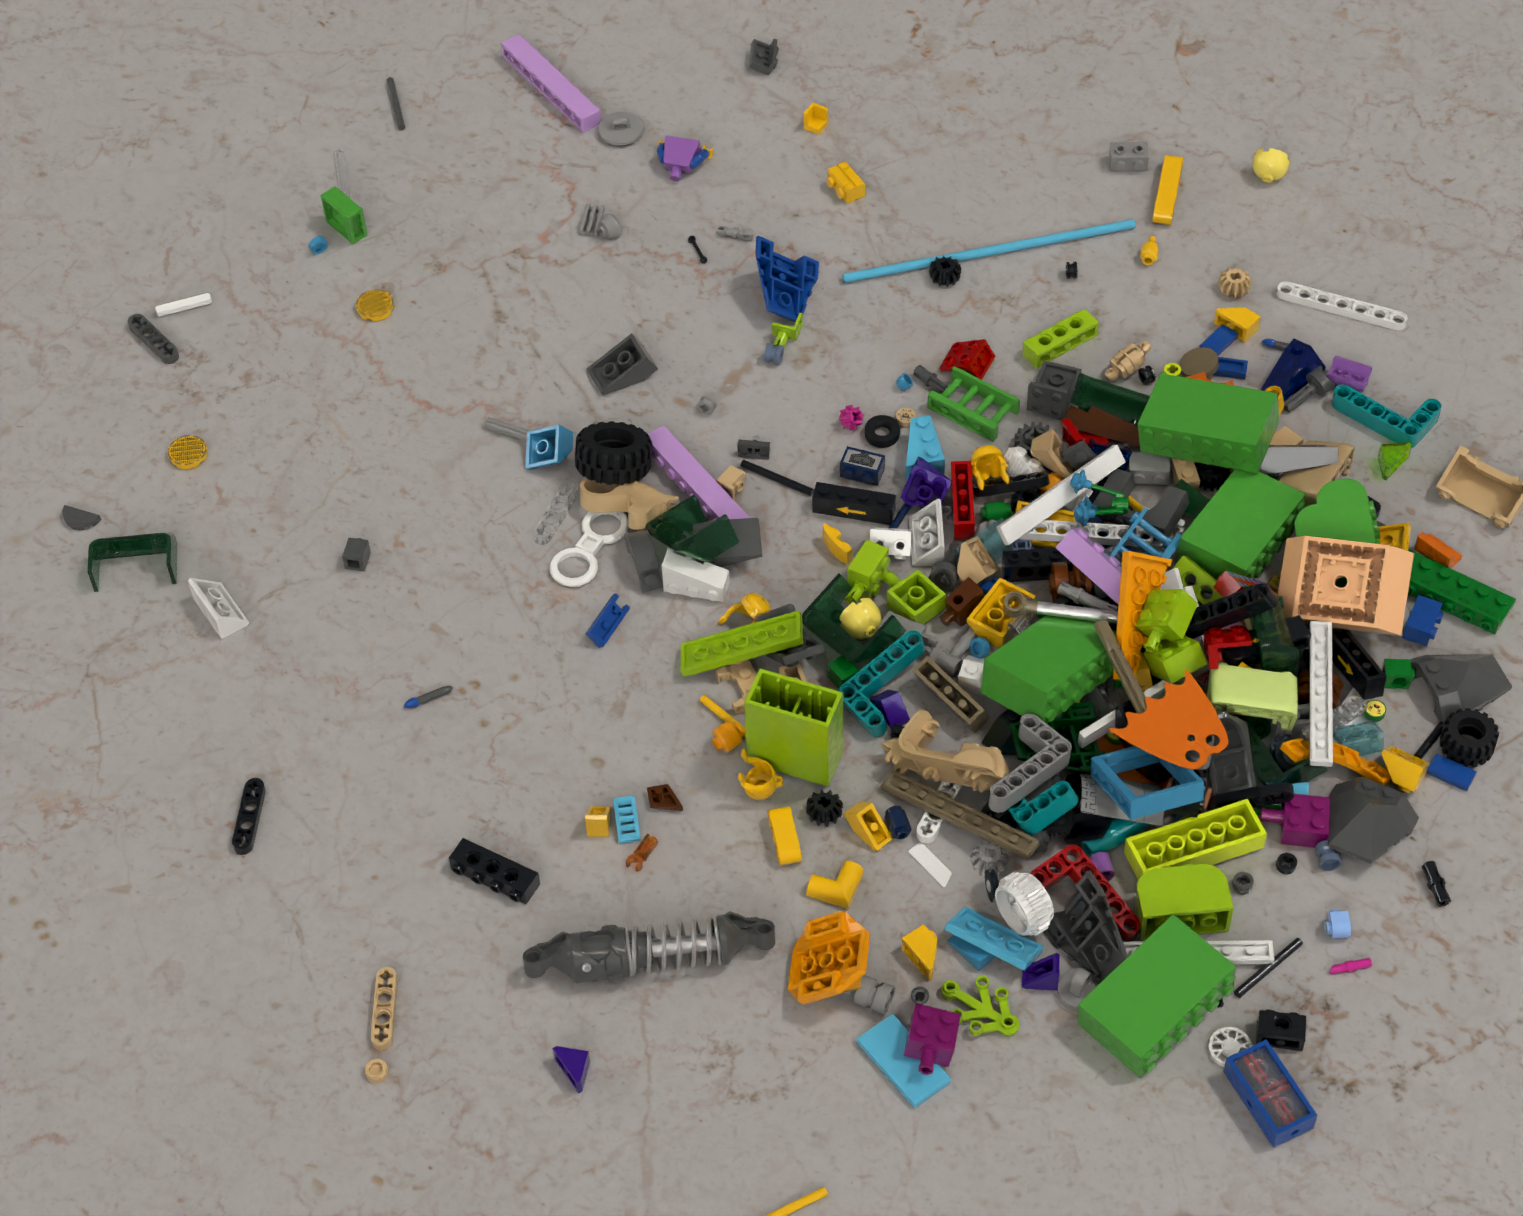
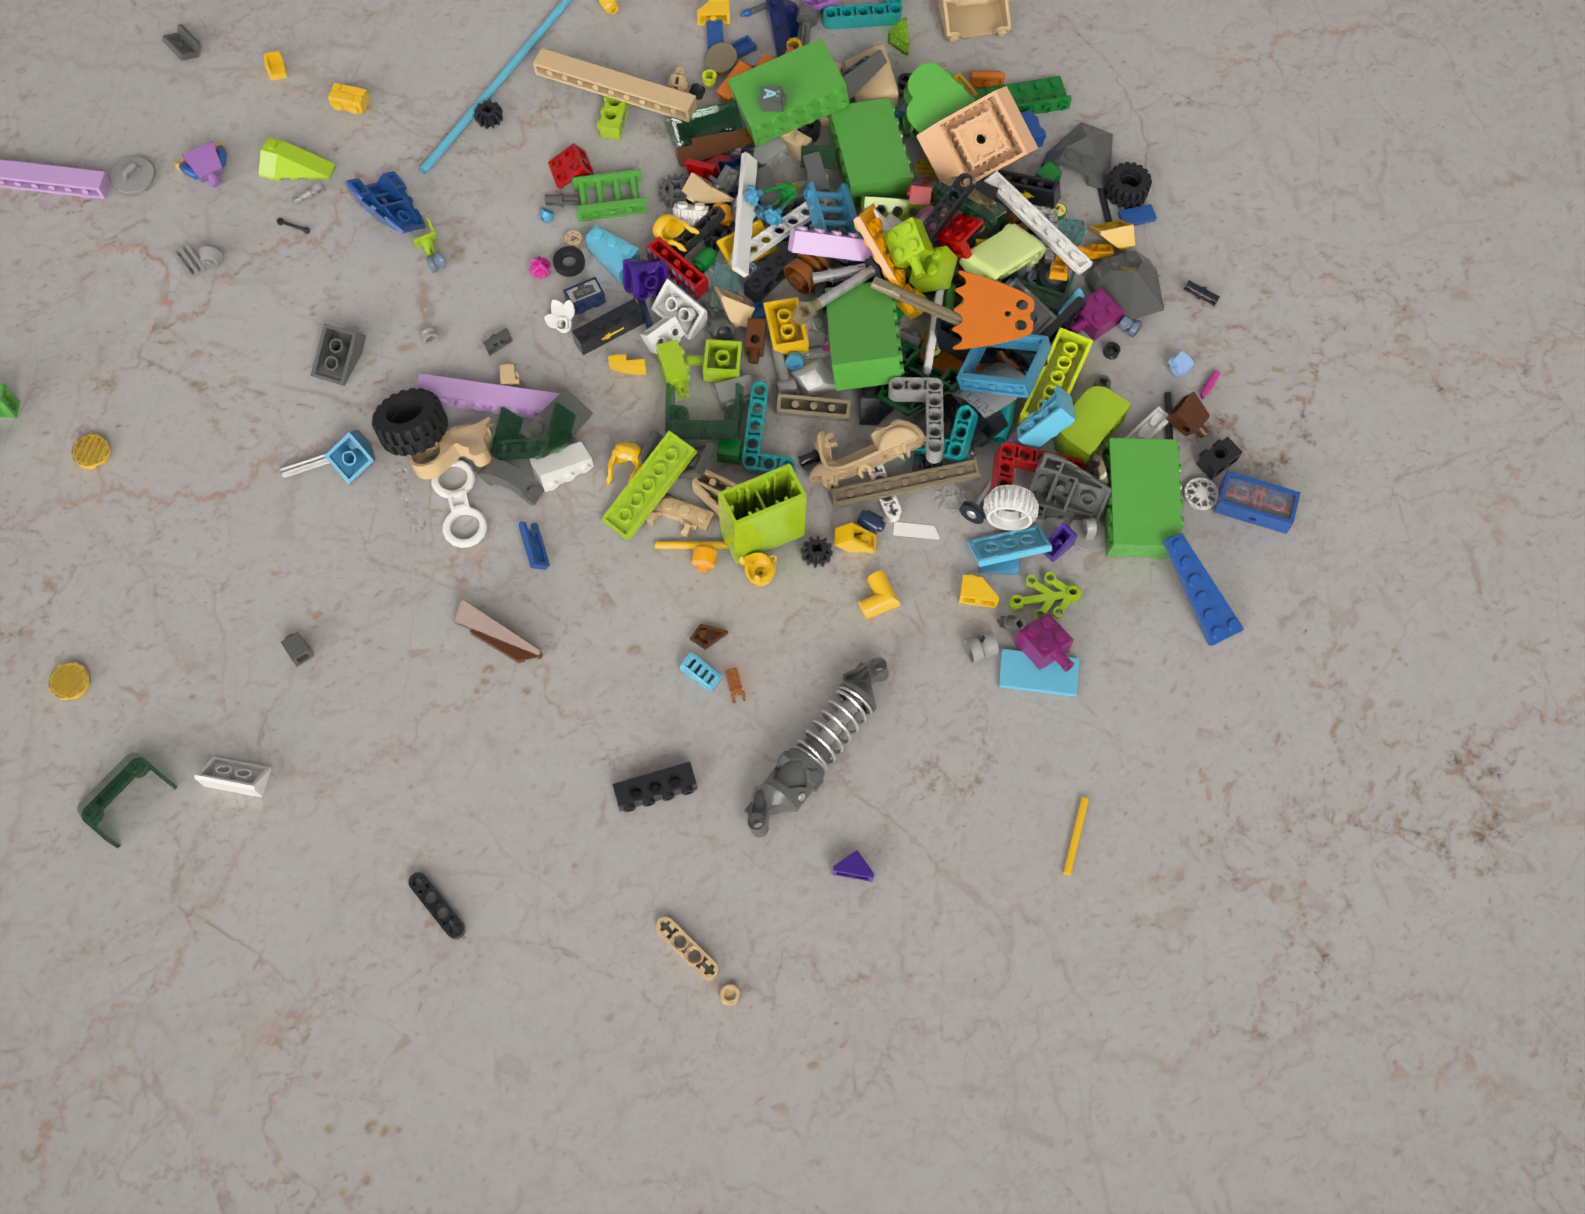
camera: 50 degrees left, 15 degrees up
(79, 518) = (38, 805): dark grey tile -> none
(414, 702) = (467, 706): dark grey piece -> none
(504, 660) = (495, 634): none -> wedge
(598, 821) = (682, 688): yellow slope -> none
(745, 197) = (285, 160): none -> lime wedge
(777, 477) = (535, 349): black bar -> none
(784, 835) = (812, 592): yellow beam -> none
(825, 467) = (560, 313): none -> white plate
(828, 958) = (920, 650): light orange piece -> none
(861, 619) = (706, 403): light yellow cylinder -> none
(892, 707) = (781, 446): dark purple slope -> none
(1052, 389) = (650, 146): dark grey bracket -> none
(1072, 270) = (571, 51): black bush -> none
(1072, 318) = (615, 85): none -> tan brick
(1117, 1134) = (1207, 602): none -> blue wing
(1135, 857) = (1048, 421): none -> medium azure wedge
(1139, 936) = (1097, 468): none -> dark tan tile
(1175, 412) = (772, 99): none -> dark grey brick
(1290, 971) = (1189, 416): none -> reddish brown torso

